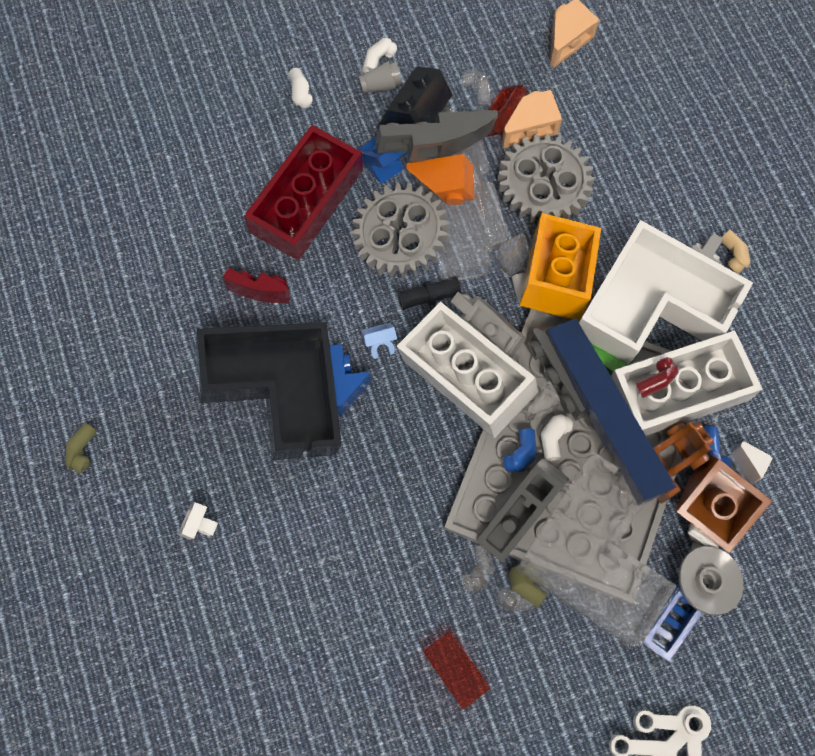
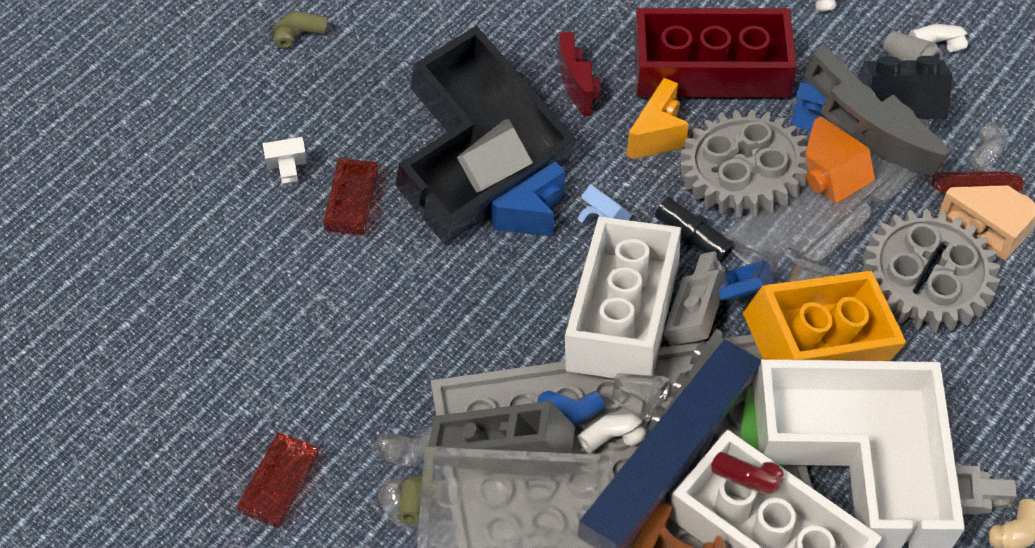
camera: 60 degrees right, 15 degrees down
(257, 495) = (351, 196): none -> clear red plate
(306, 381) = (494, 156): none -> light grey slope
(334, 265) = (657, 126): none -> light orange slope
(500, 289) = (746, 281): none -> blue slope

